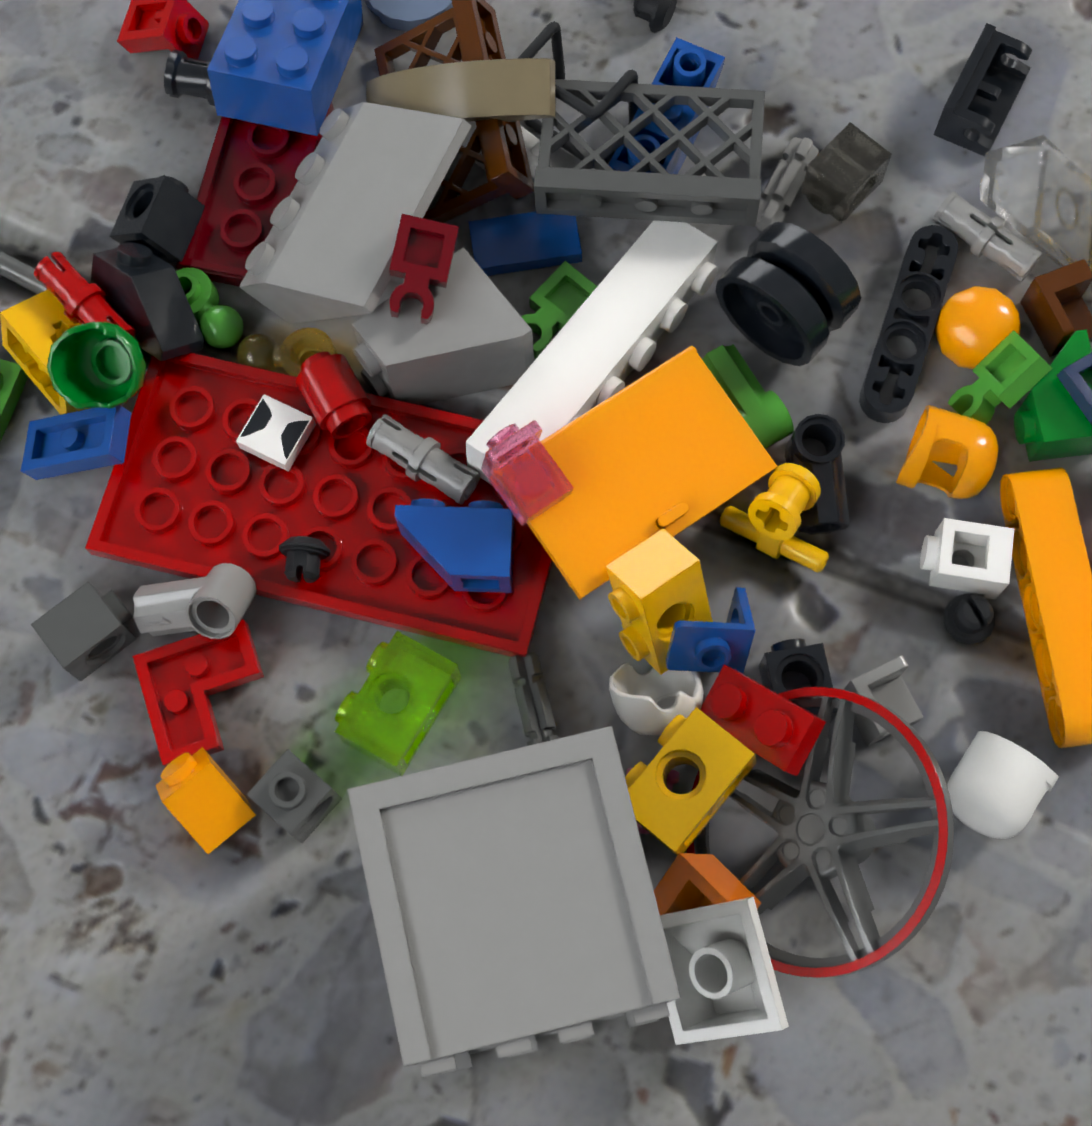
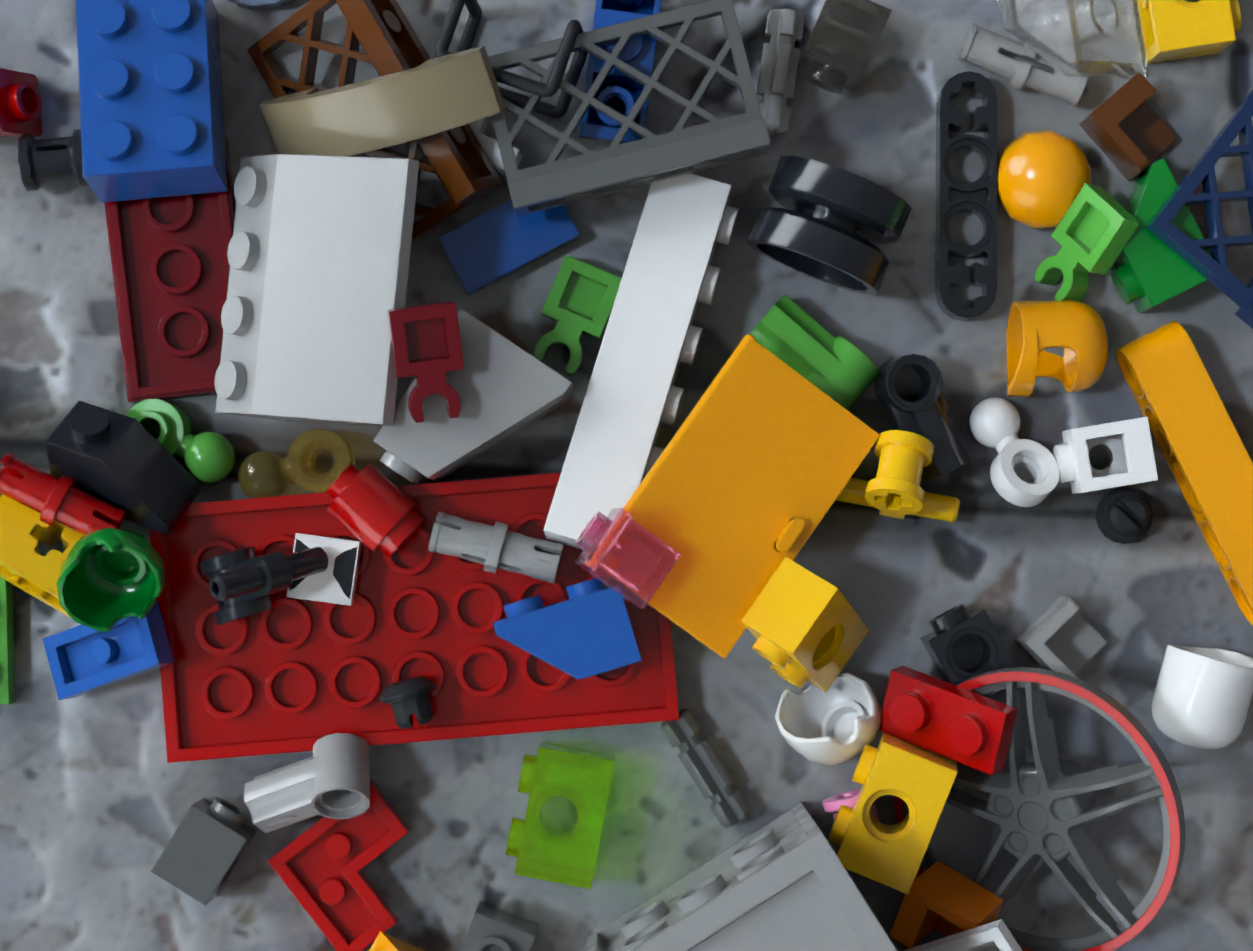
camera: 25 degrees left, 15 degrees up
(160, 217) = (89, 358): black brick -> none
(210, 408) = (244, 580): none -> black piece
(710, 645) = (878, 652): blue bracket -> none
(890, 546) = (996, 426): none -> white plate

